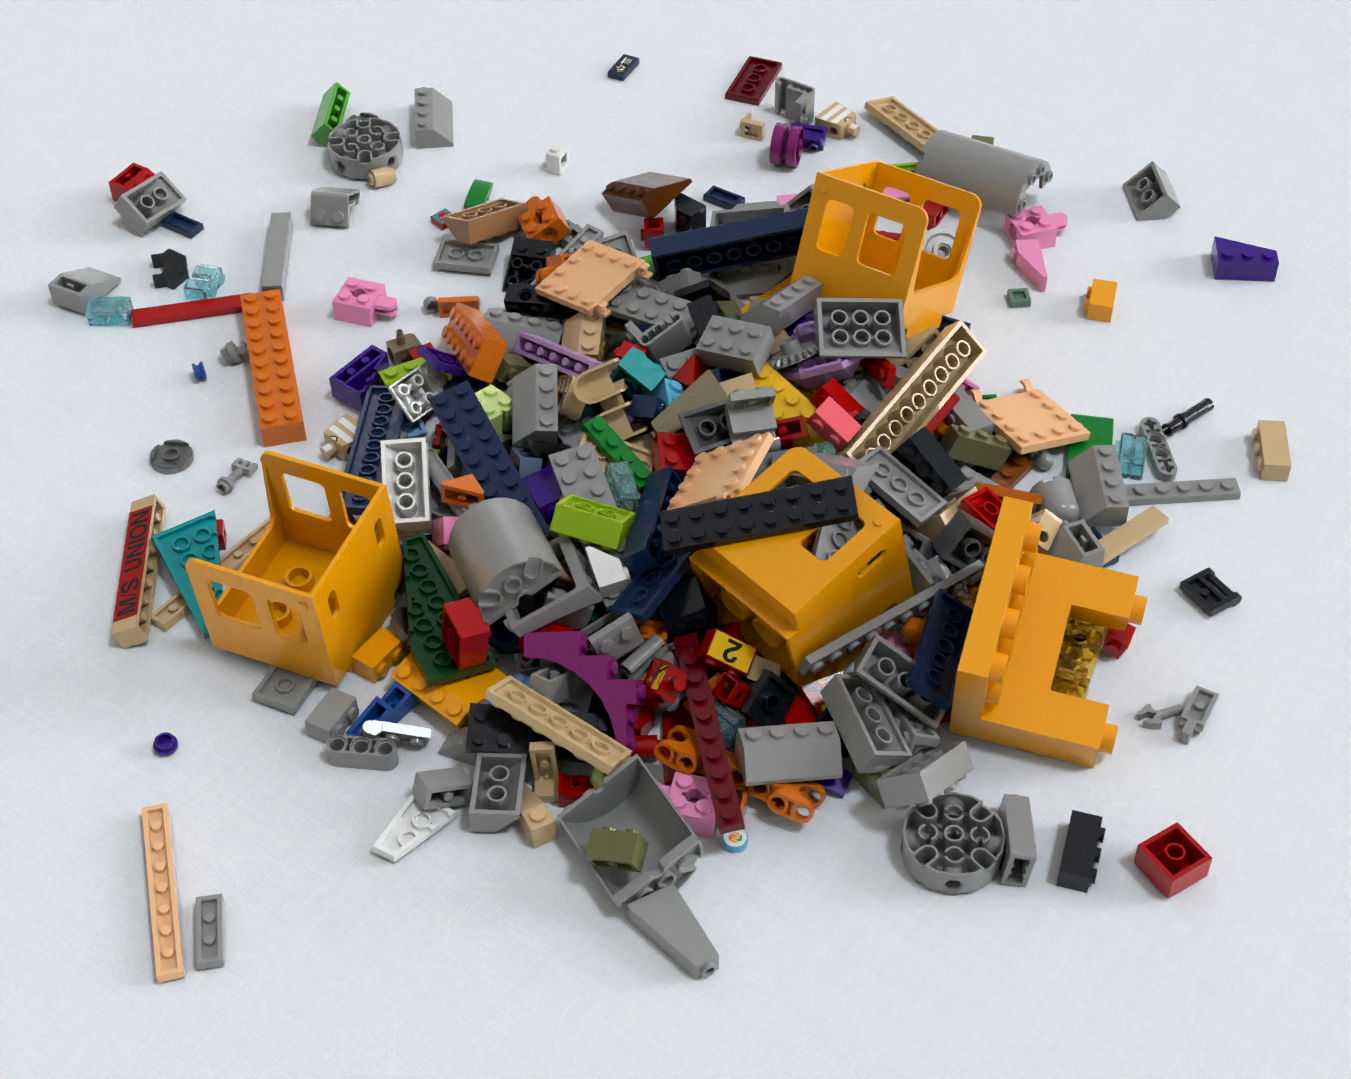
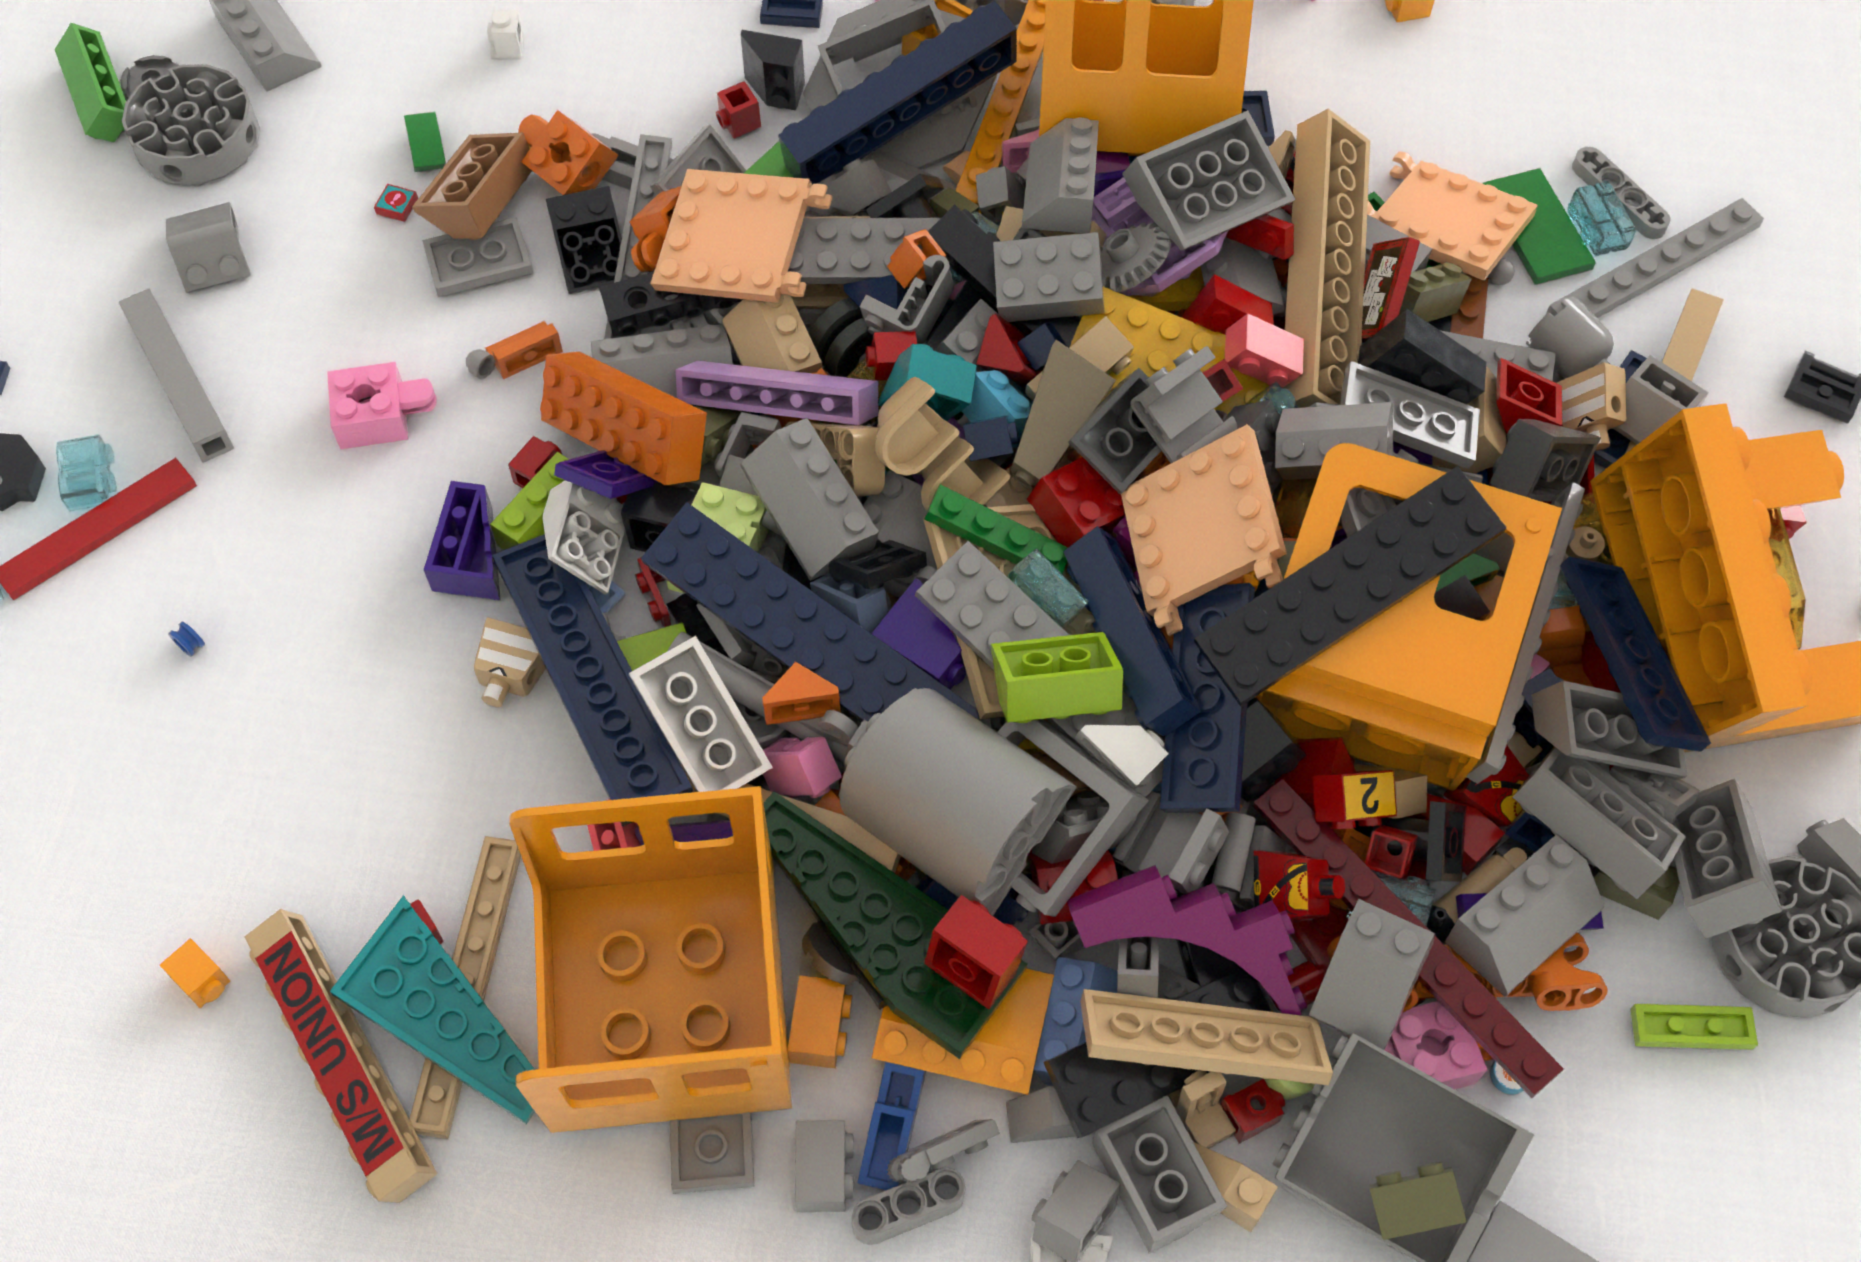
camera: 30 degrees left, 15 degrees up
(99, 511) = (195, 973): none -> light orange brick
(171, 457) = (243, 814): flat silver tile -> none
(232, 353) = (221, 581): light grey piece -> none
(239, 468) = (371, 828): light grey hinge -> none
(272, 368) = (306, 582): orange brick -> none
(381, 177) = (249, 165): tan brick -> none
(398, 347) = (490, 461): dark tan piece -> none
(644, 193) = (692, 48): reddish brown slope -> none
(671, 733) = (1372, 974): none -> light grey slope
(673, 305) = (909, 257): none -> orange window
(859, 862) = (1693, 1026): none -> lime plate
(968, 596) = (1586, 544): none -> tan tile
(1013, 493) = (1524, 353): orange plate -> none
(1019, 298) = (1294, 23): sand green tile -> none
(1099, 486) = (1611, 284): light grey slope -> none
(1182, 420) = (1623, 135): black pin -> none
(1271, 450) = (1760, 137): tan brick -> none

